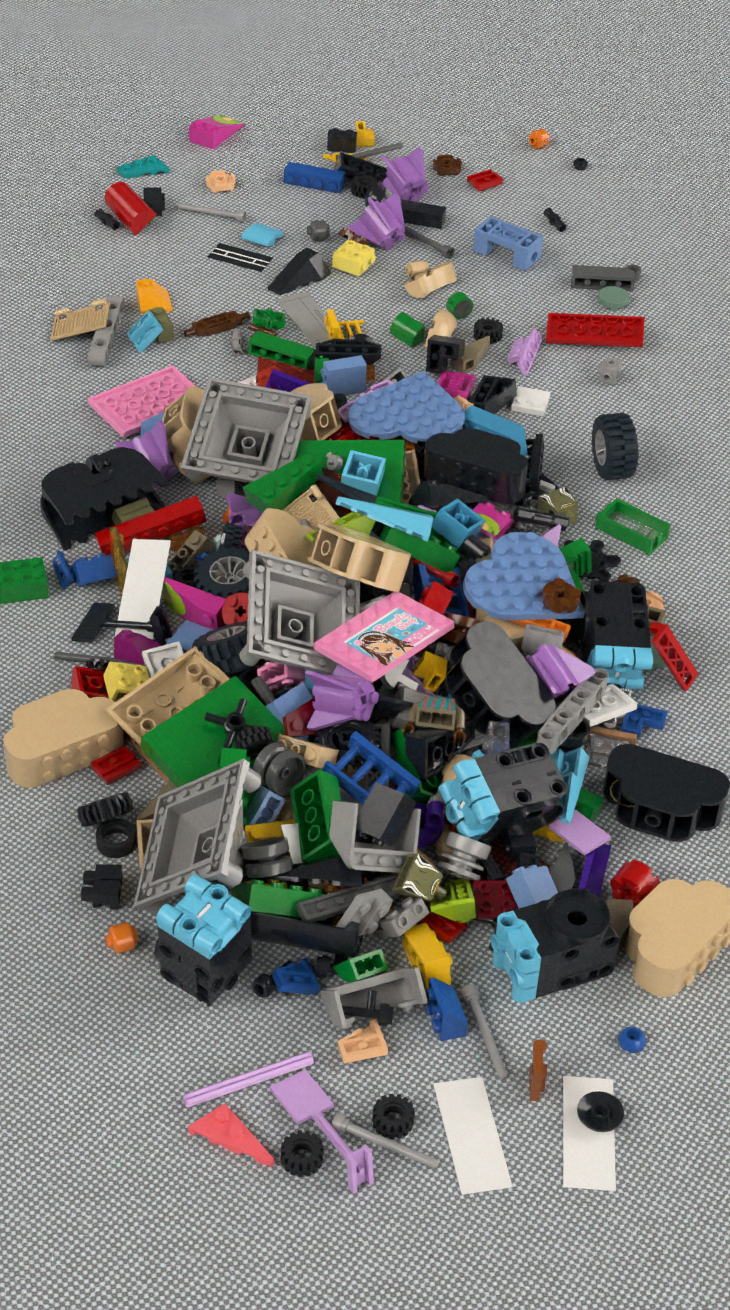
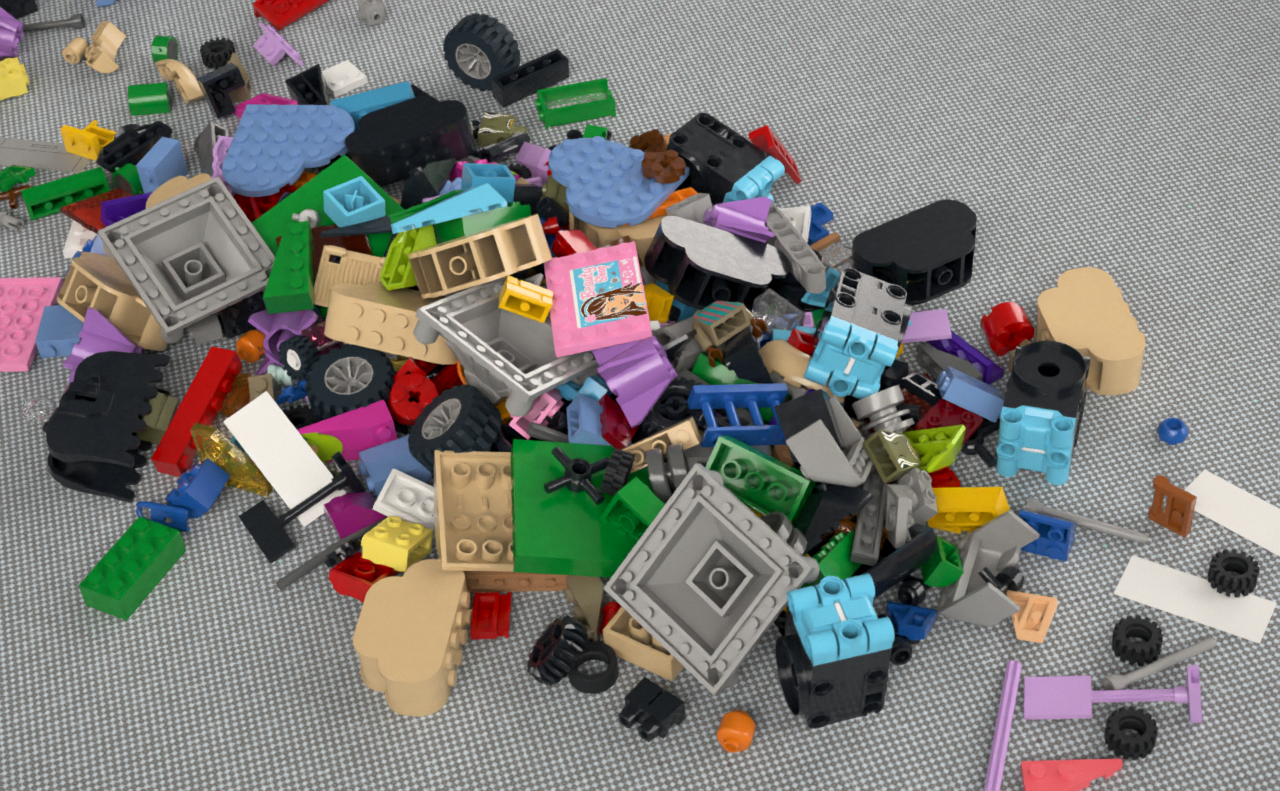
camera: 45 degrees left, 0 degrees up
(340, 600) = (525, 299): none -> yellow brick
(507, 1153) = (1236, 563): none -> black tyre
(600, 1104) = (1244, 493): black dish -> none
(628, 487) = (530, 77): none -> black brick

